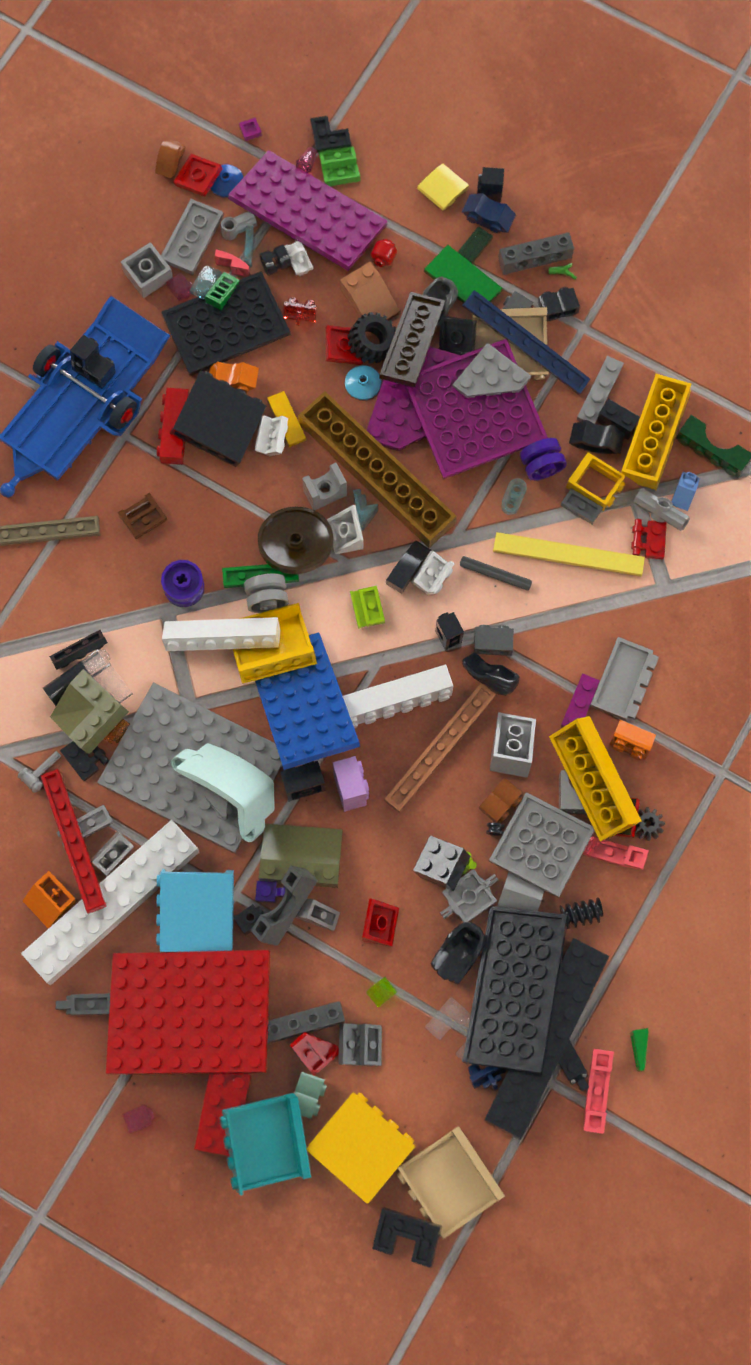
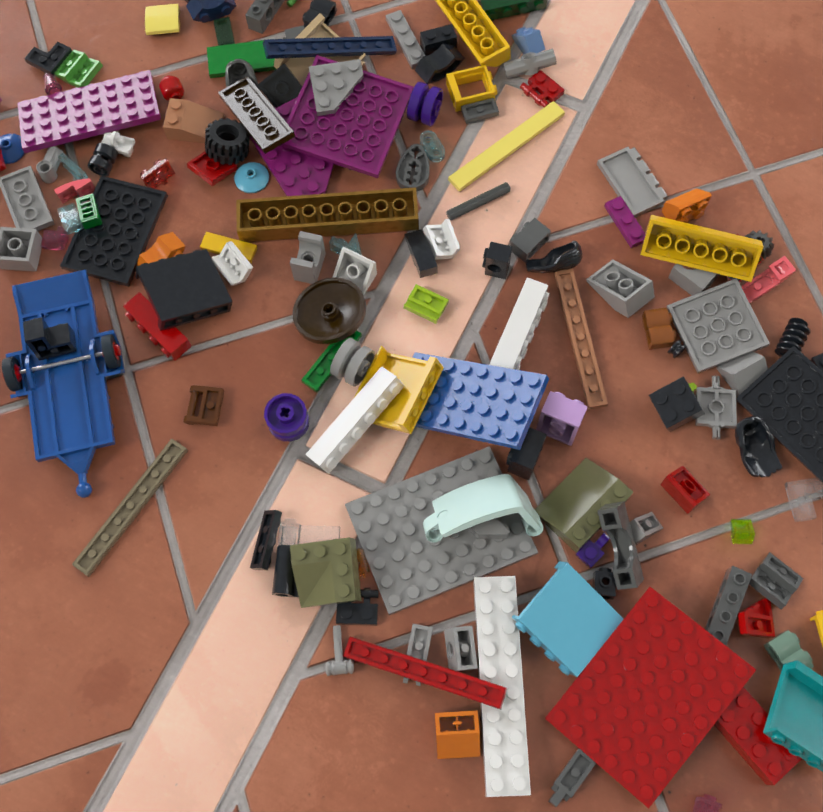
camera: 45 degrees left, 5 degrees down
(485, 508) = (422, 168): none -> dark grey piece

